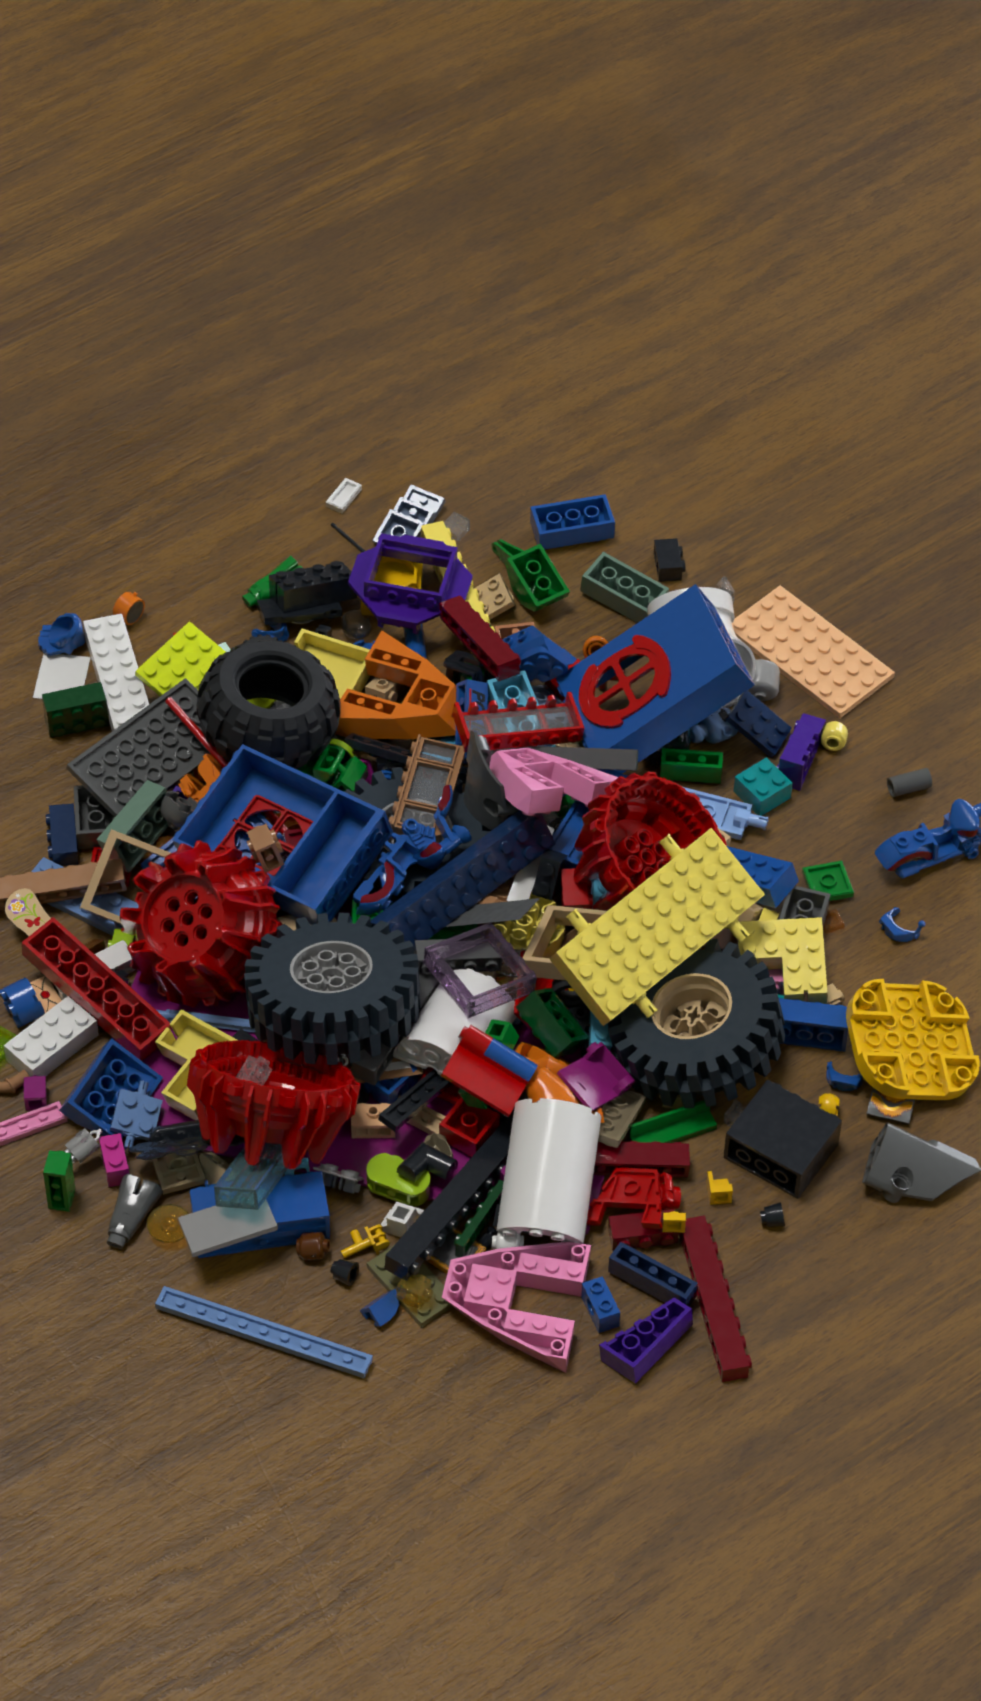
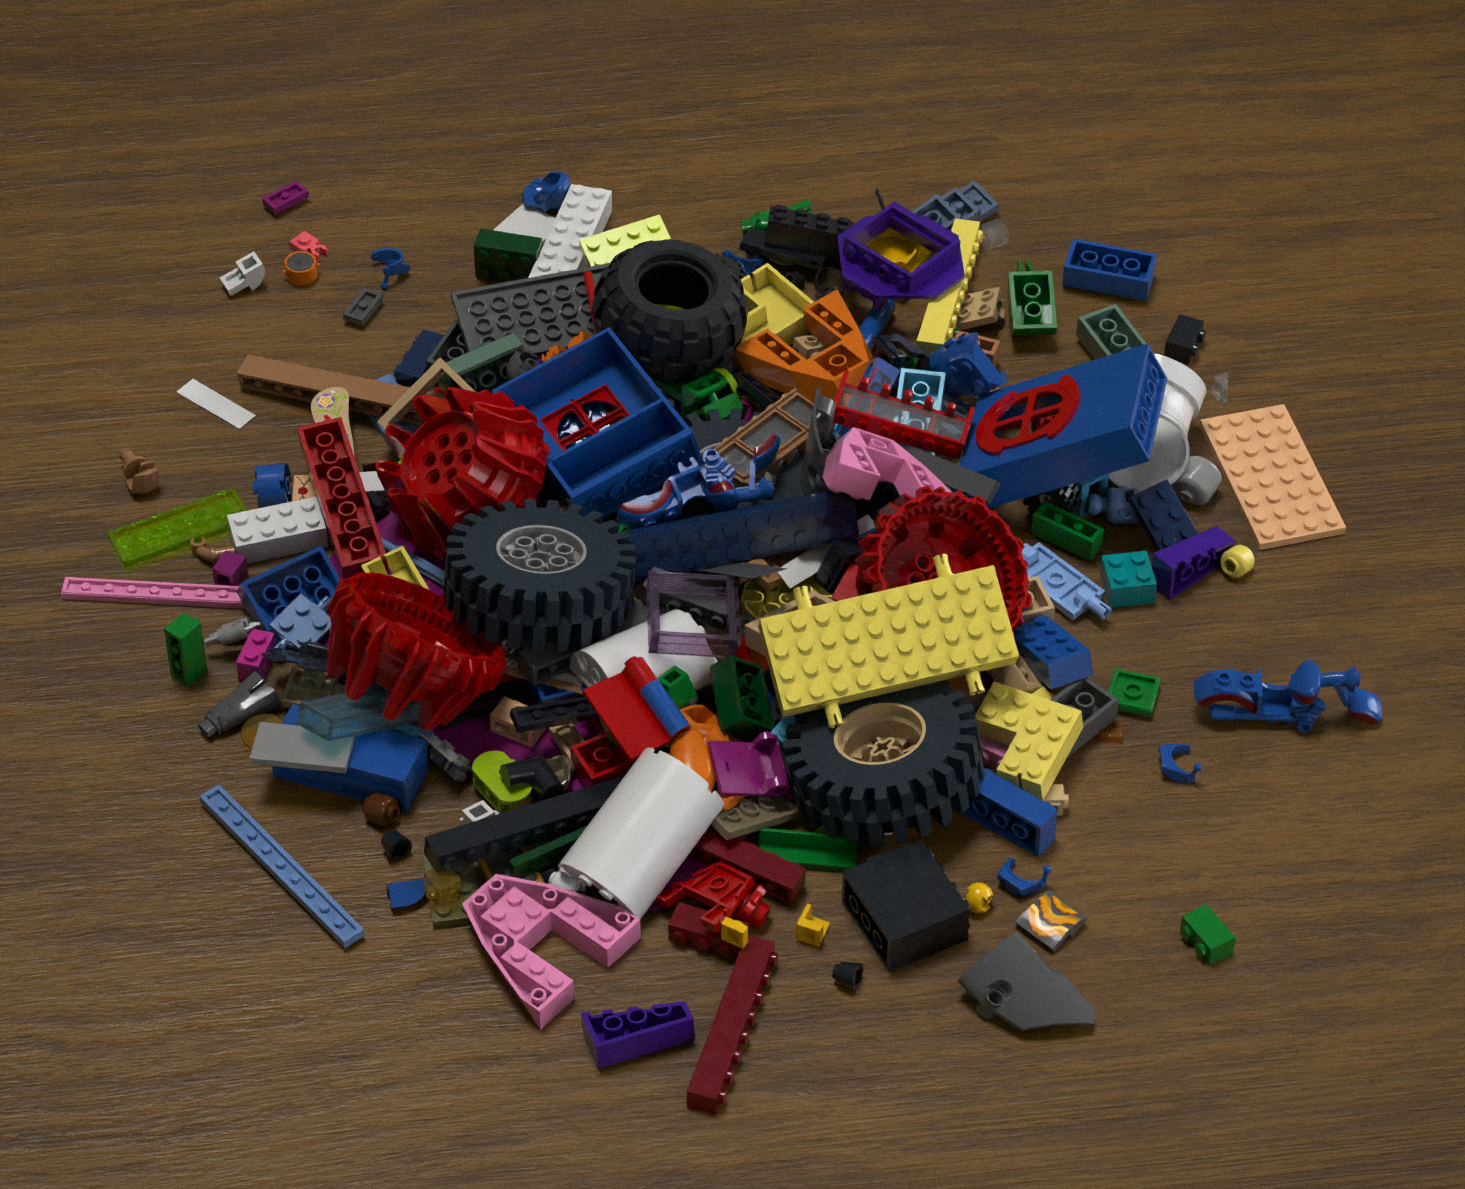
camera: 30 degrees right, 5 degrees down
(130, 607) = (625, 190): orange piece -> none
(255, 1070) = (417, 620): clear brick -> none
(265, 847) = (558, 421): medium nougat brick -> none
(343, 495) = (905, 169): white tile -> none
(375, 1238) = (442, 823): yellow arm -> none
(480, 638) = (923, 328): dark red brick -> none
(600, 1304) = (615, 980): blue brick -> none
(651, 1275) = (682, 976): dark blue brick -> none
(909, 782) = (1285, 634): dark grey pin -> none
(911, 1040) = (1103, 869): yellow plate -> none

